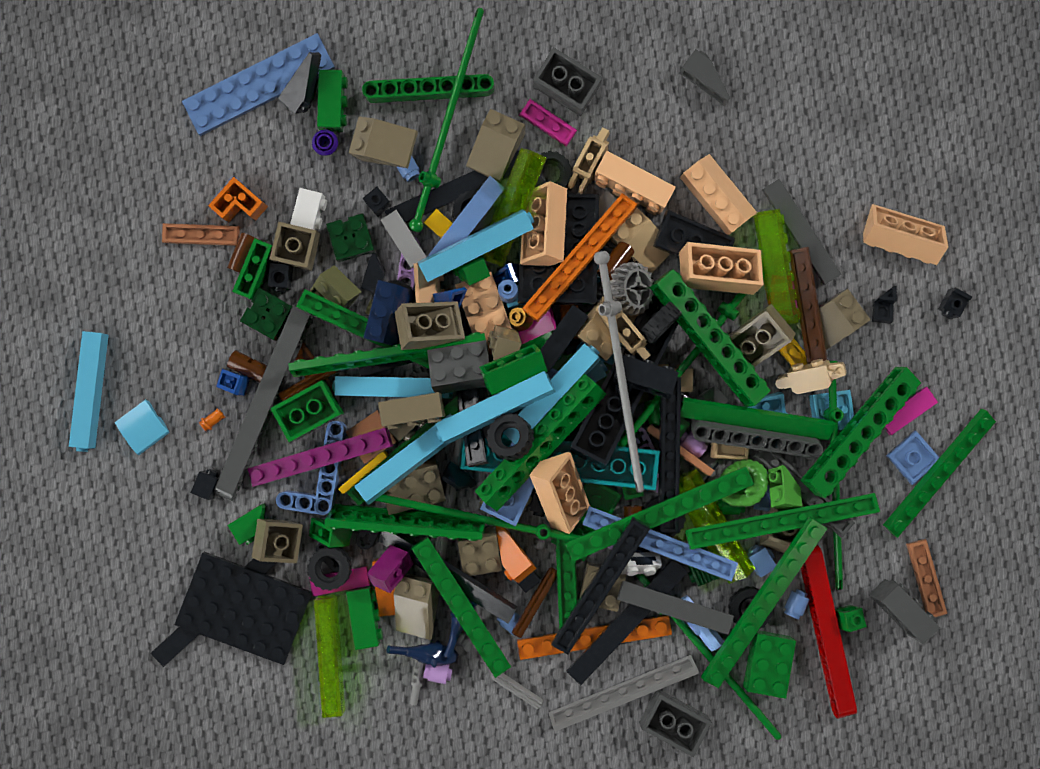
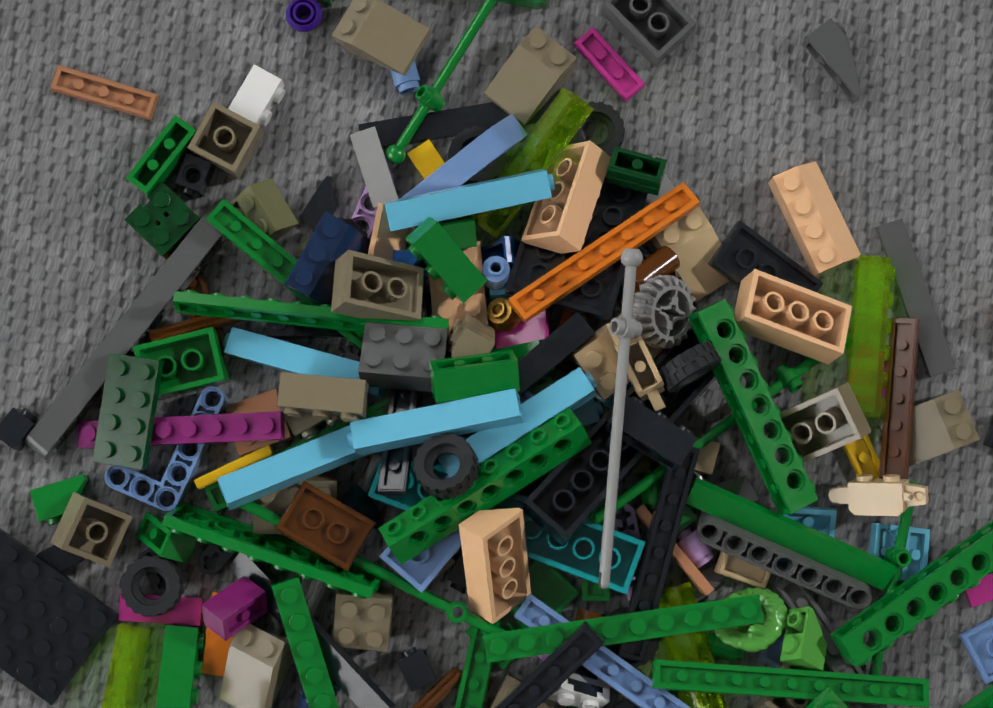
camera: 15 degrees right, 5 degrees down
(211, 420) = (49, 343): orange pin -> none
(233, 382) = (92, 300): blue slope -> none
(234, 198) = (162, 56): orange brick -> none
(240, 252) = (151, 129): reddish brown pin -> none
(246, 366) = (116, 282): reddish brown pin -> none
(279, 453) = (128, 411): none -> dark green plate
(353, 246) = (303, 161): dark green piece -> none
(377, 201) = (352, 109): black brick -> none
(437, 498) = (325, 526): none -> reddish brown tile
(471, 292) = (445, 260): none -> green brick
(513, 557) = (407, 637): orange slope -> none
(587, 194) = (636, 171): none -> dark green brick
(589, 160) = (655, 123): tan hinge -> none
(633, 182) = (703, 173): light nougat brick -> none

